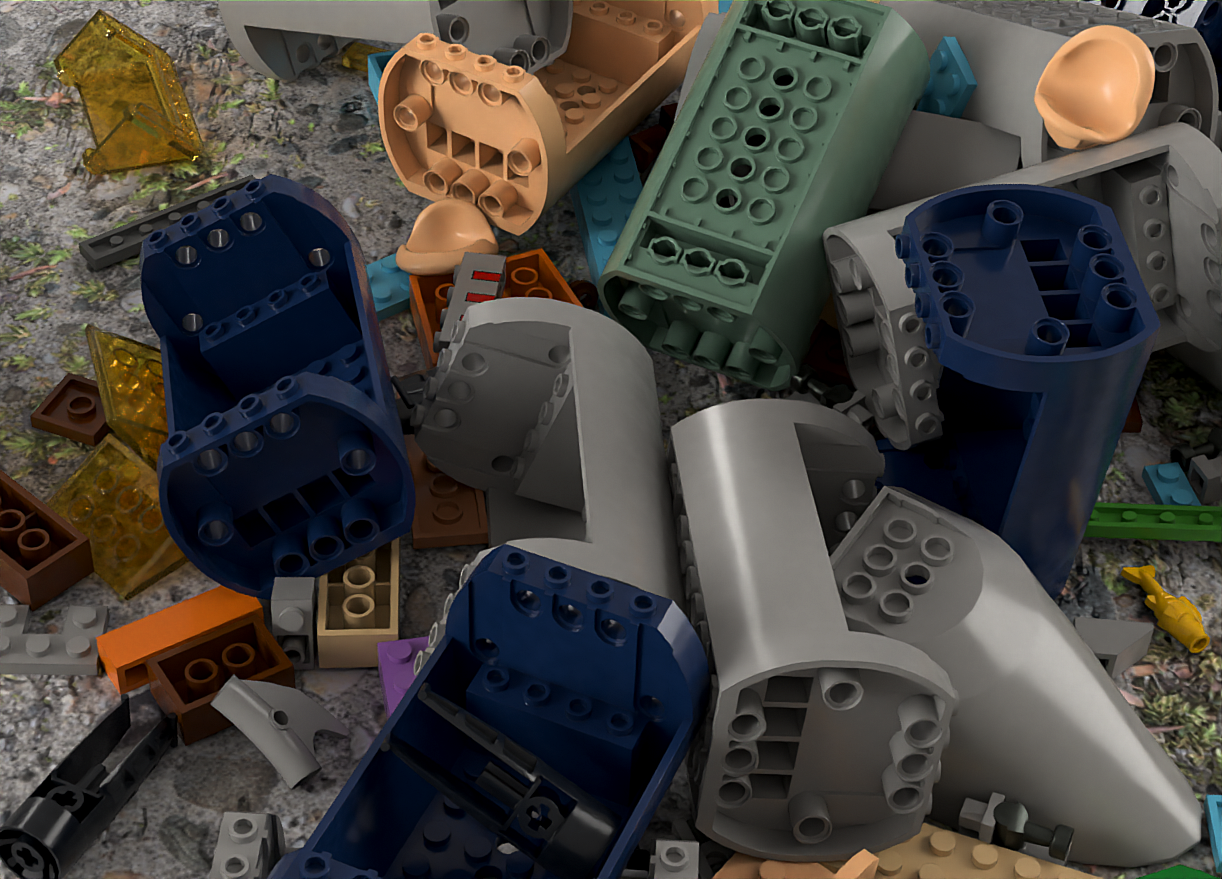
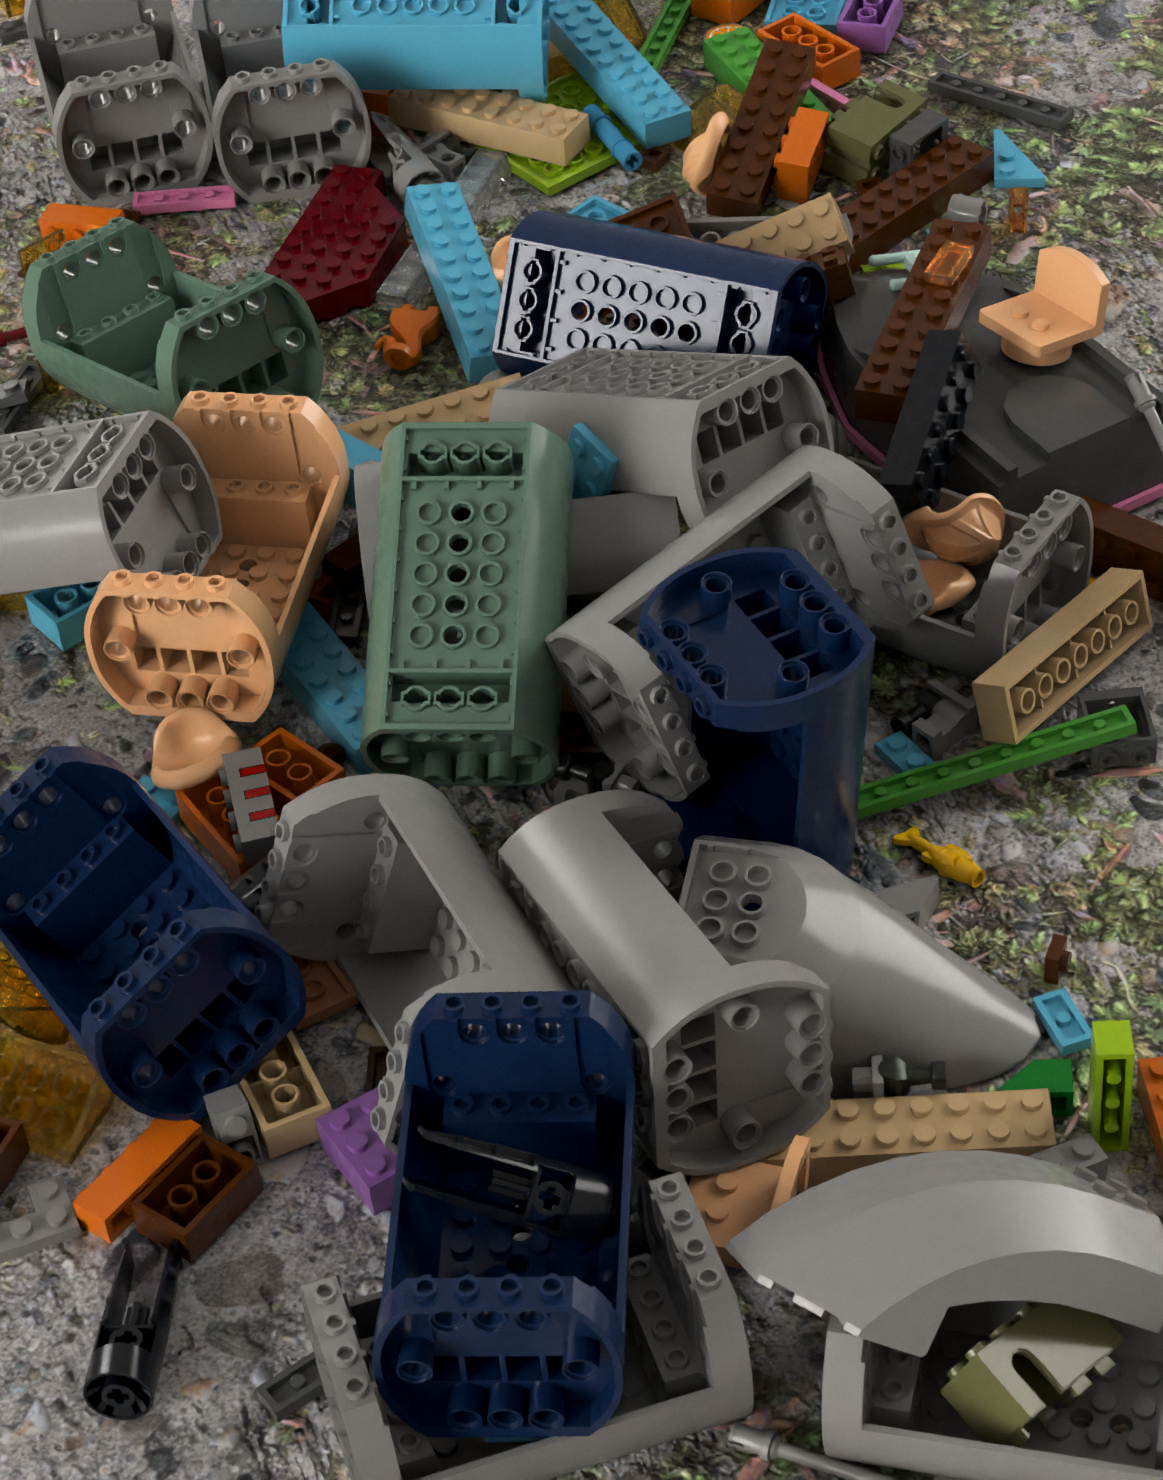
camera: 15 degrees left, 0 degrees up
(279, 724) = (267, 1215): light grey pin -> none
(1096, 87) = (731, 439): light nougat piece -> none

